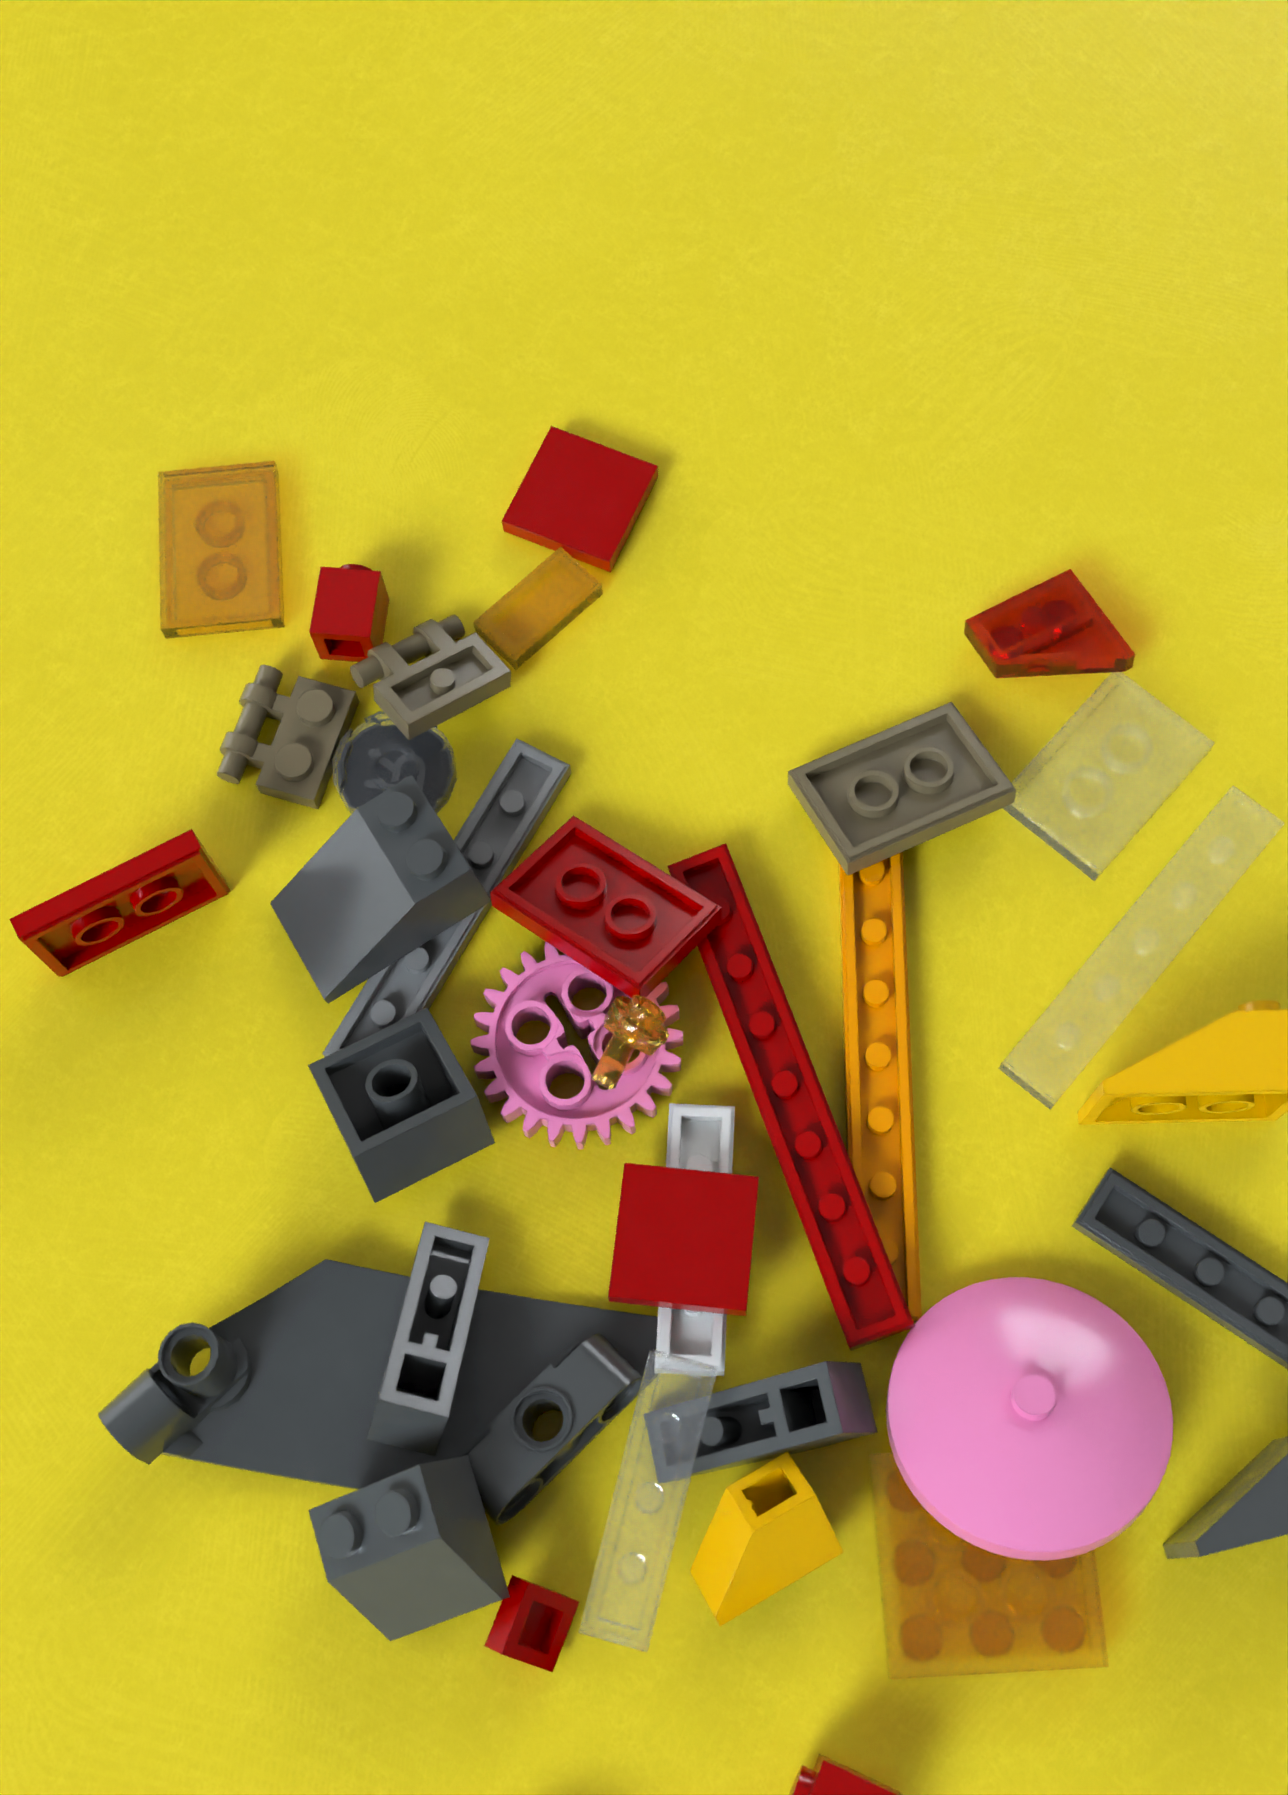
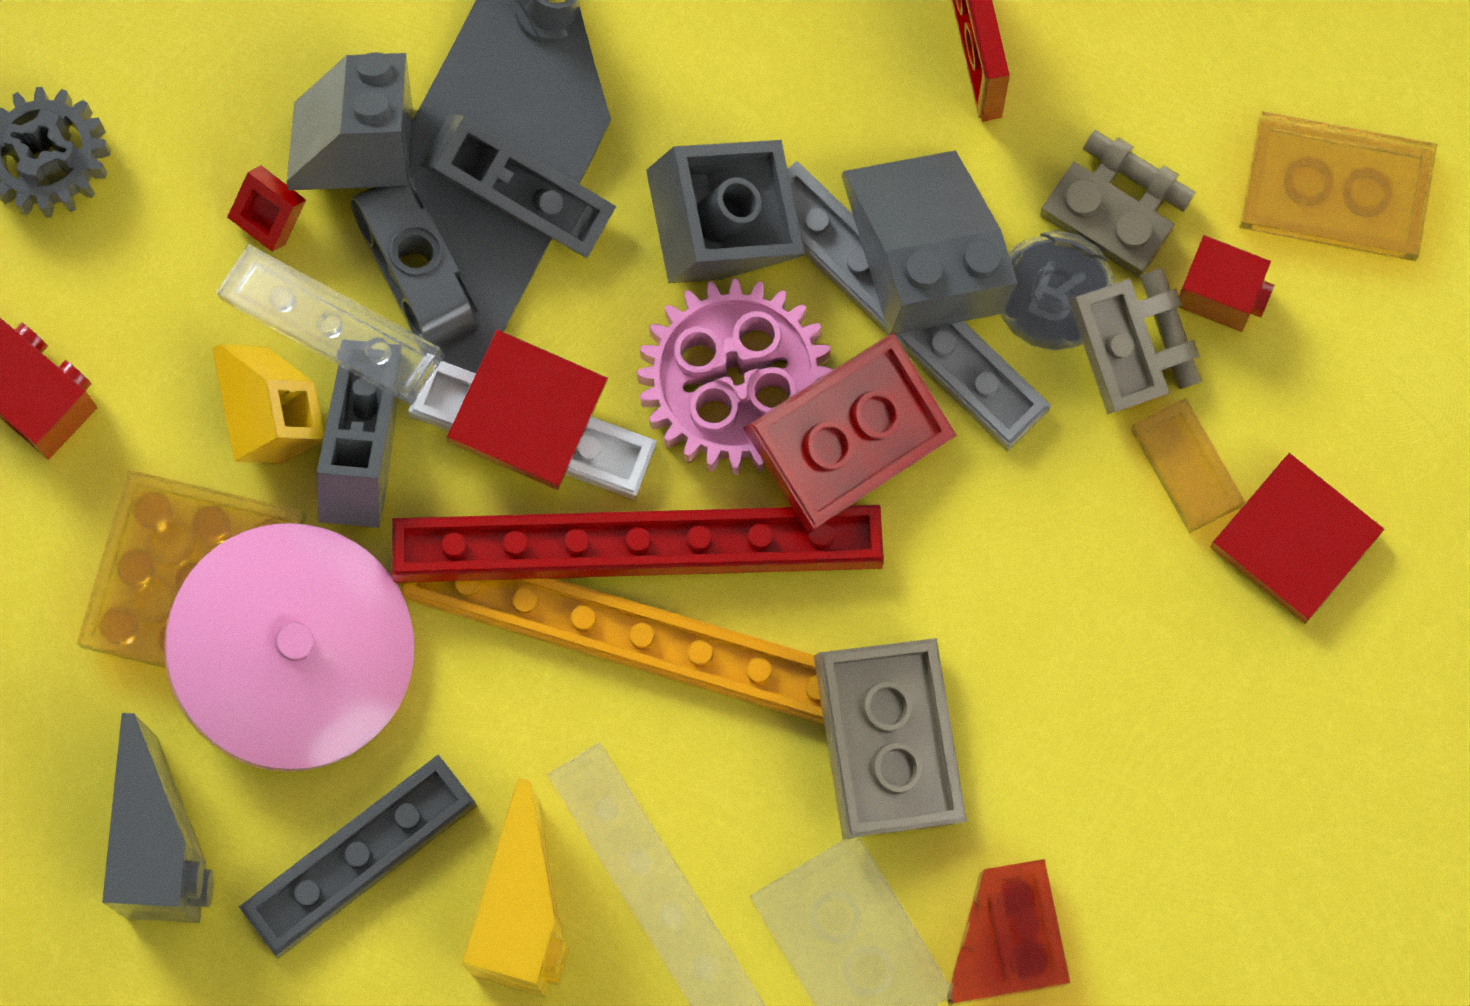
camera: 105 degrees right, 5 degrees up
(634, 1025) = (721, 413): clear yellow plate -> none

